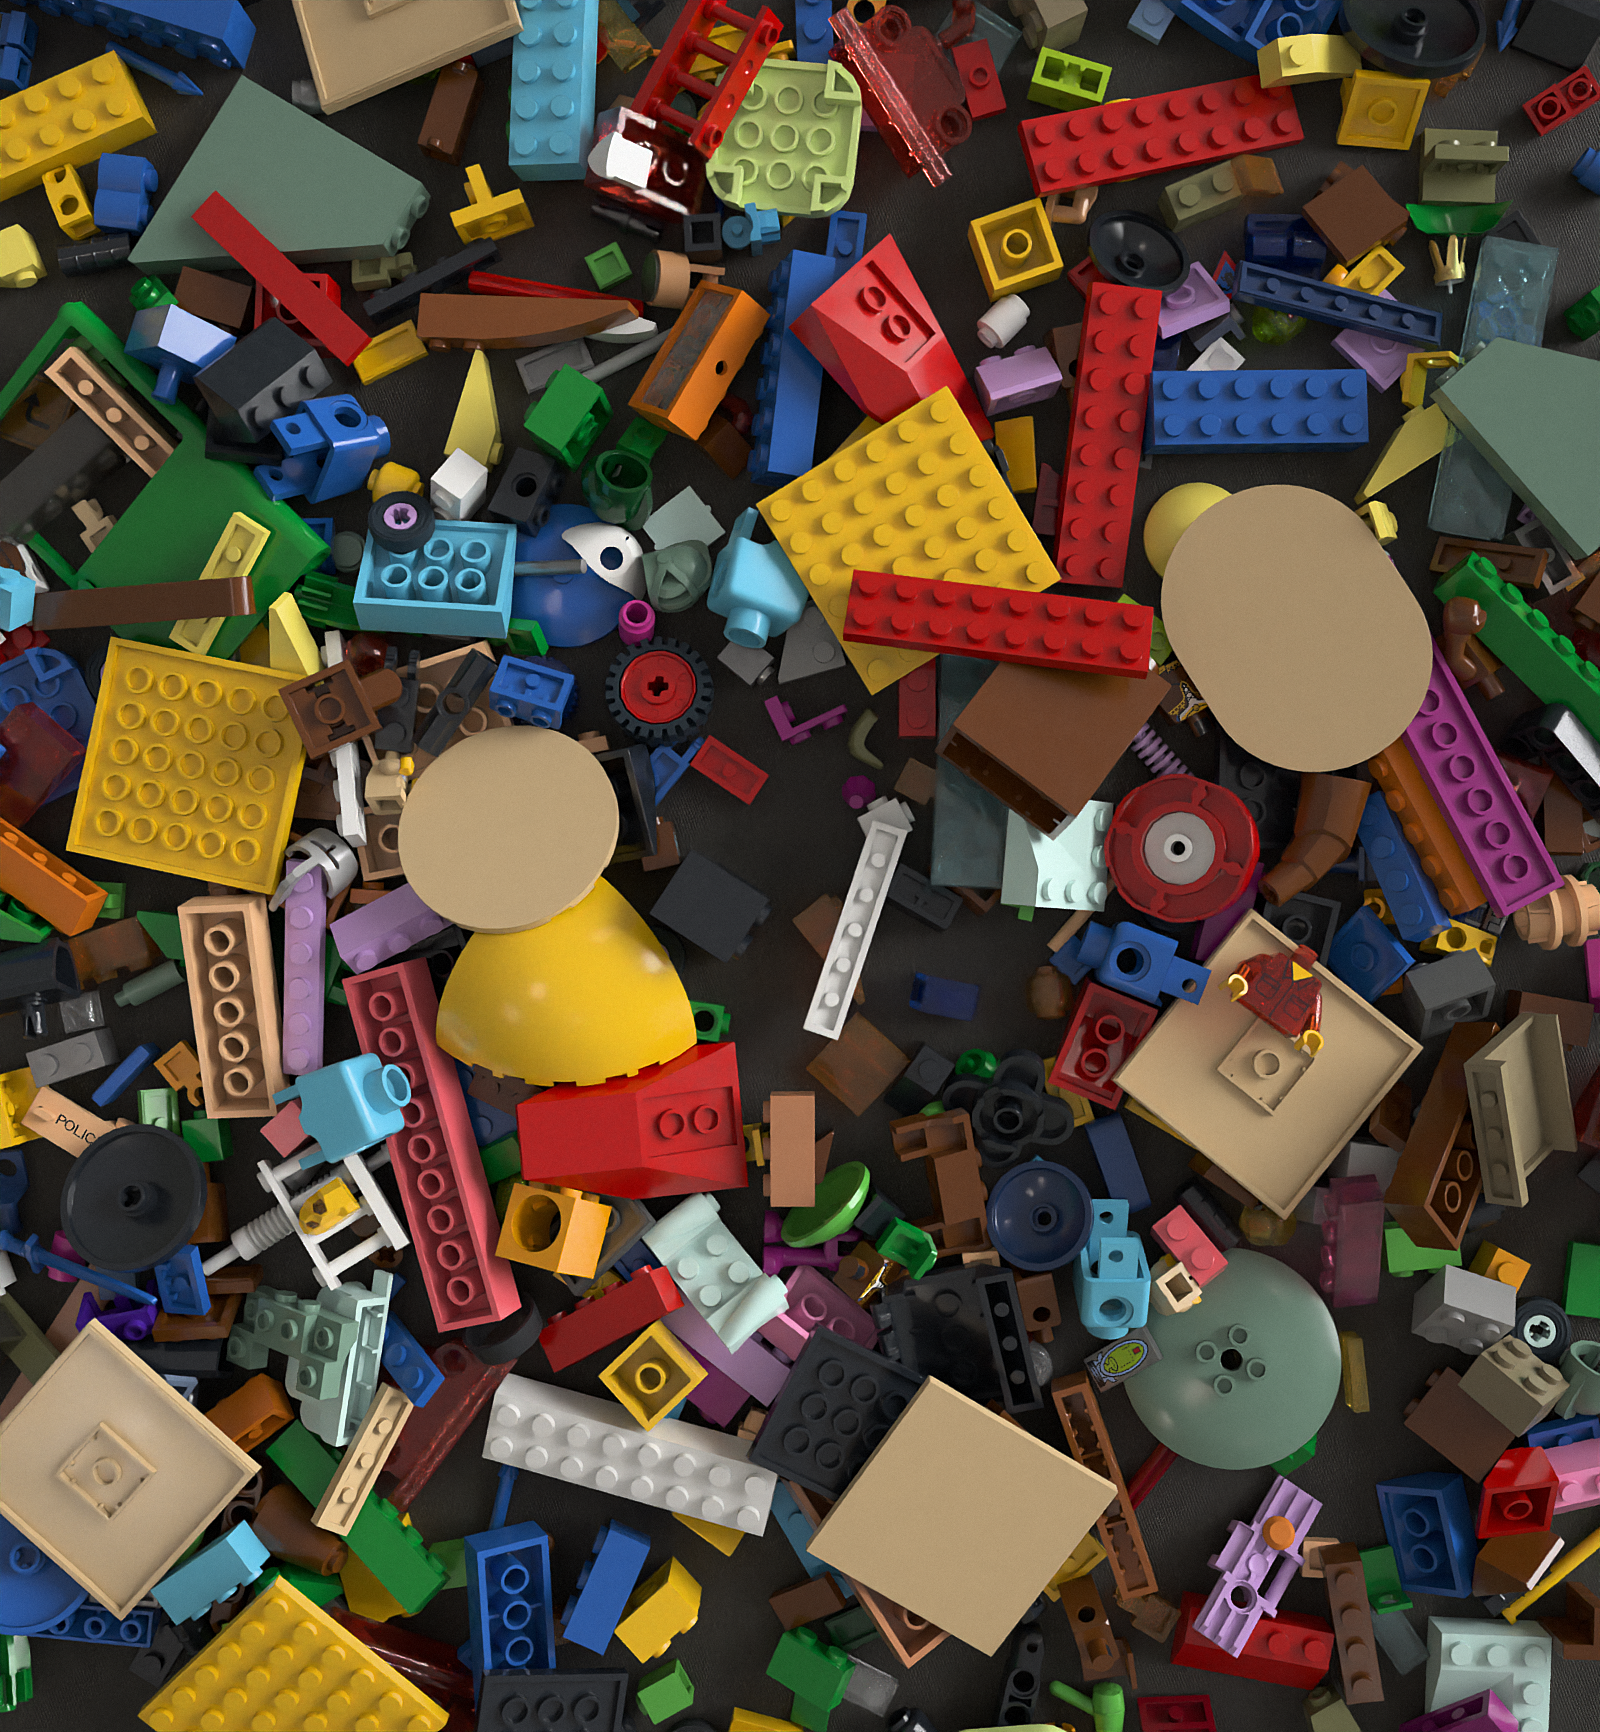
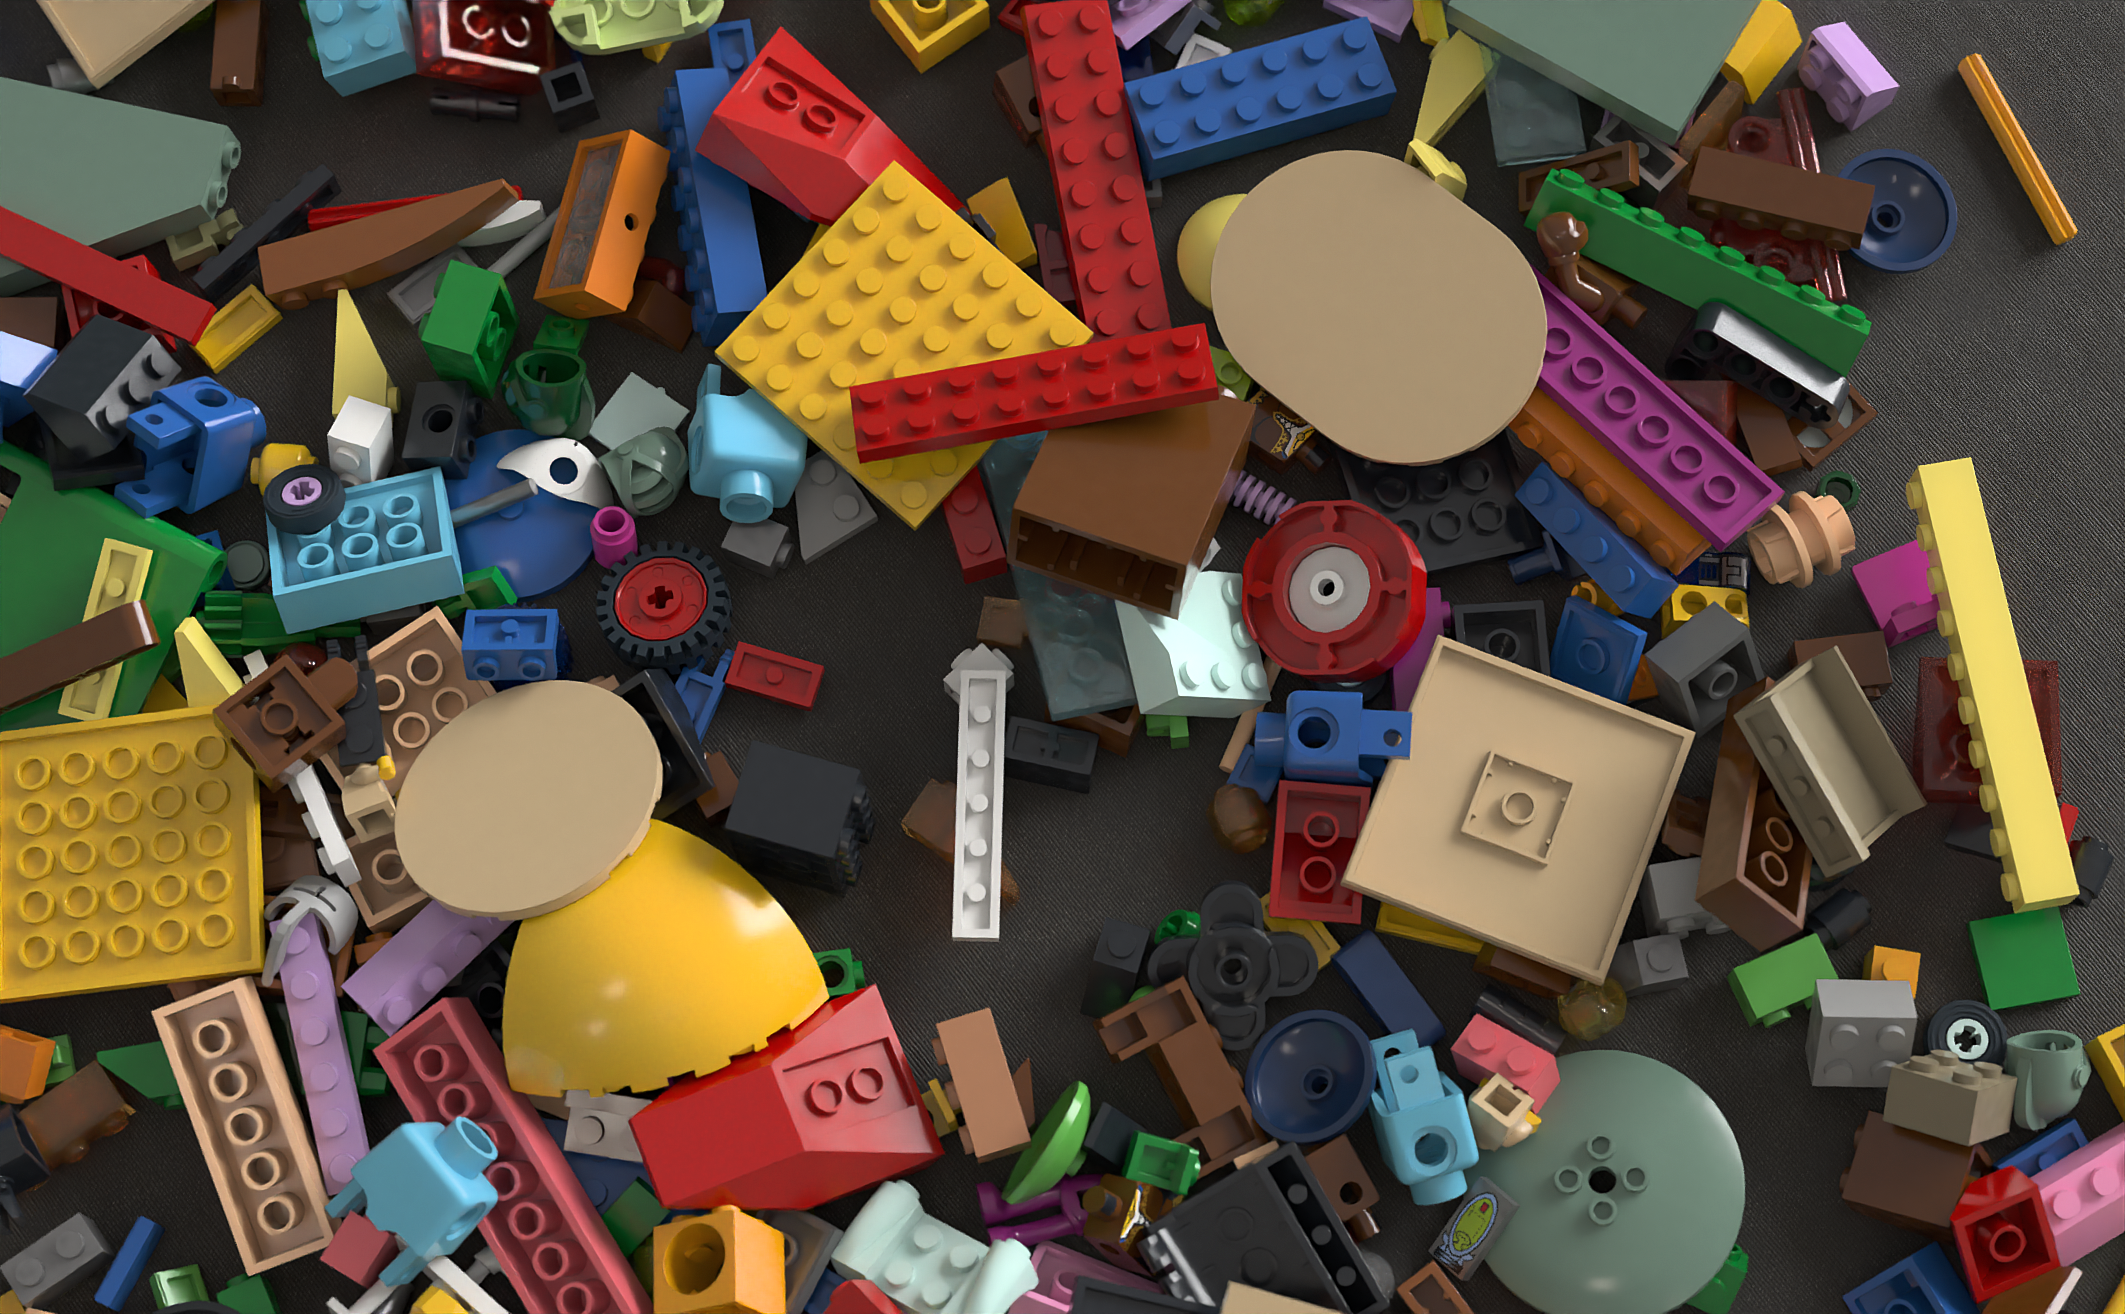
camera: 15 degrees left, 15 degrees down
(82, 1012) = (51, 1205): clear tile -> none
(151, 983) = (133, 1144): sand green cylinder -> none
(181, 1070) = (200, 1237): light orange plate -> none
(442, 722) = (432, 653): black piece -> none
(490, 214) = (316, 139): yellow bracket -> none
(608, 267) = (468, 161): bright green tile -> none
(621, 161) = (453, 31): white tile -> none
(667, 278) = (540, 149): medium nougat piece -> none
(755, 229) = (628, 67): dark azure hips -> none
(782, 716) = (819, 594): magenta bracket -> none
(857, 738) = (917, 601): olive hair -> none
(858, 791) = (936, 656): magenta rock -> none
(858, 1064) = (1035, 975): clear orange slope -> none
(945, 996) = (1116, 857): clear blue torso -> none
(1003, 321) = (941, 88): white brick -> none
(1016, 380) = (977, 145): lavender slope -> none
(1281, 994) = (1500, 714): clear red torso -> none
(1323, 835) = (1493, 522): reddish brown piece -> none
(1352, 1240) = (1695, 987): clear pink brick -> none
(1354, 1371) = (1761, 1158): clear yellow tile -> none

